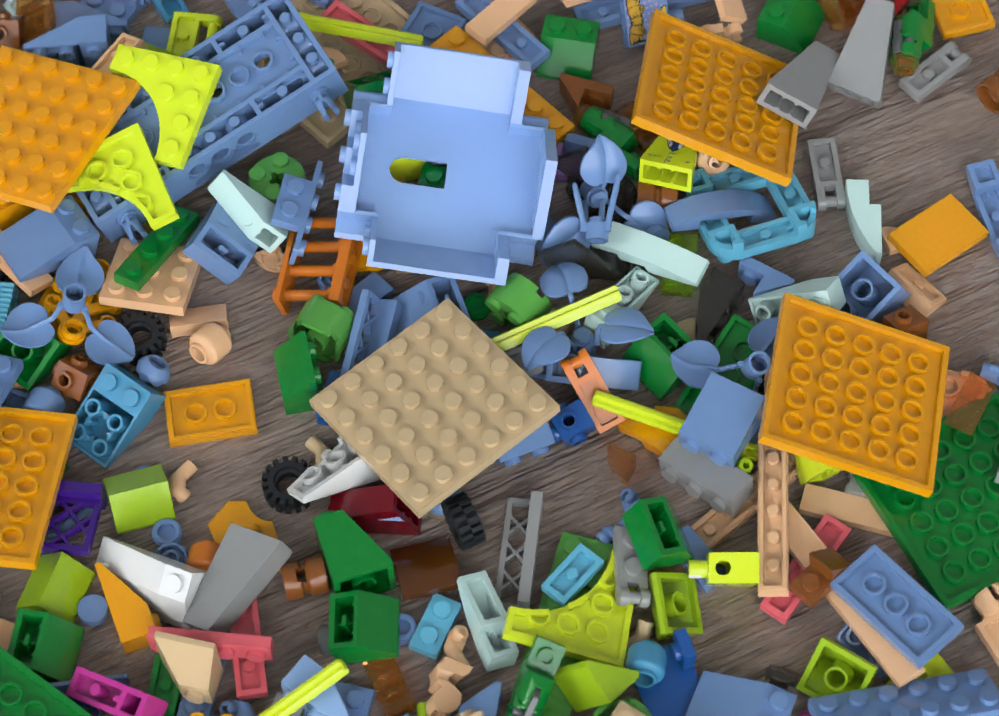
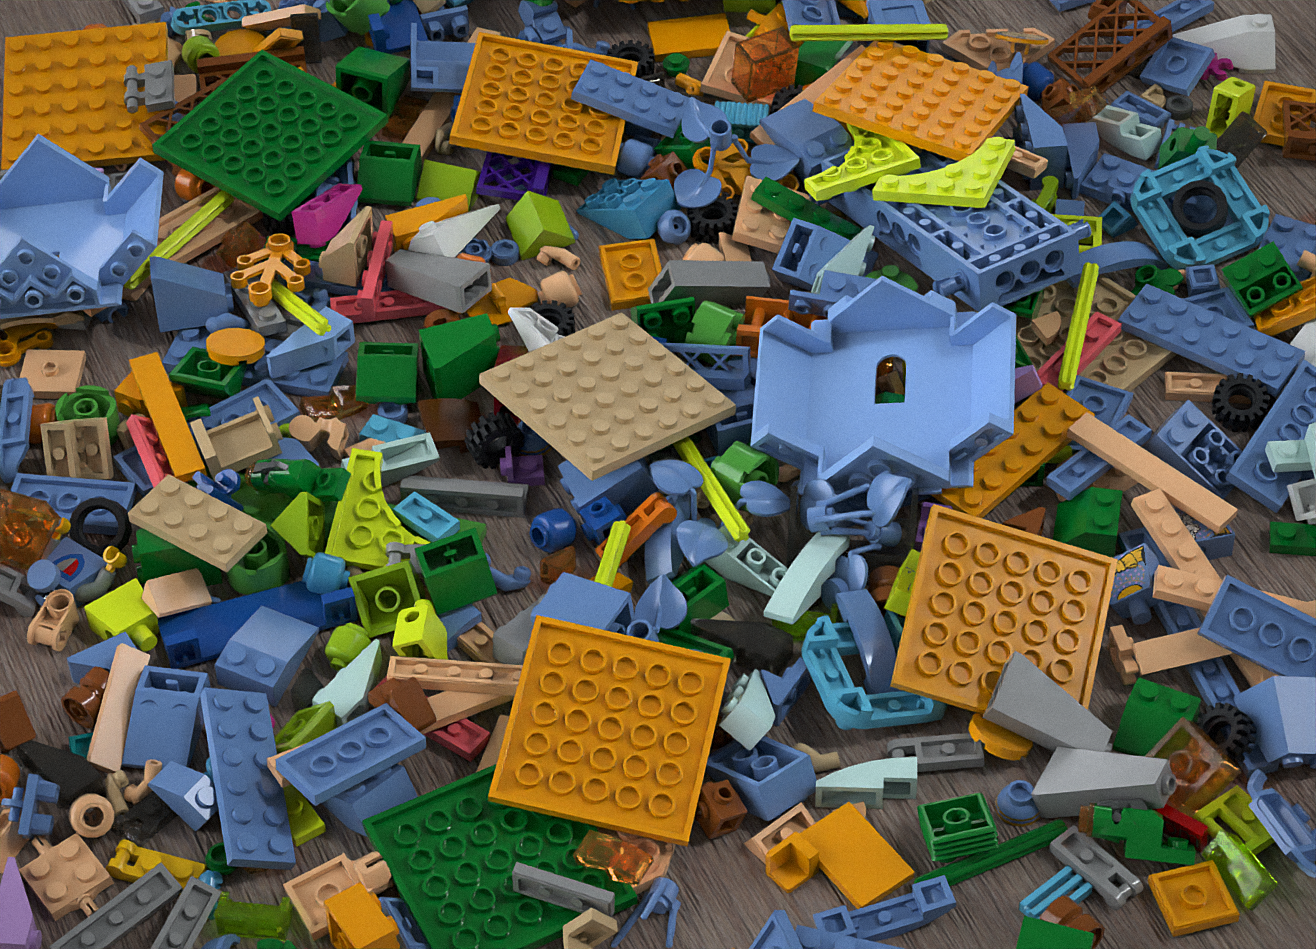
camera: 90 degrees right, 15 degrees down
(241, 474) = (560, 288): none -> light nougat head
(254, 337) = (710, 280): none -> light grey slope
(487, 502) = (522, 469): none -> medium lavender bracket
(575, 470) = (553, 530): none -> blue head
(727, 642) = (345, 645): none -> lime head
(782, 635) = (351, 685): none -> light aqua slope
(817, 129) = (999, 740): none -> light orange tile
(837, 261) = (820, 762): none -> tan arm
(870, 121) = (1015, 804): none -> medium blue piece
(898, 153) = (958, 827): none -> green brick
(929, 142) = (1007, 851): none -> green axle
(947, 280) = (792, 862): none -> light orange panel
(967, 98) = (1050, 886): none -> medium azure tile

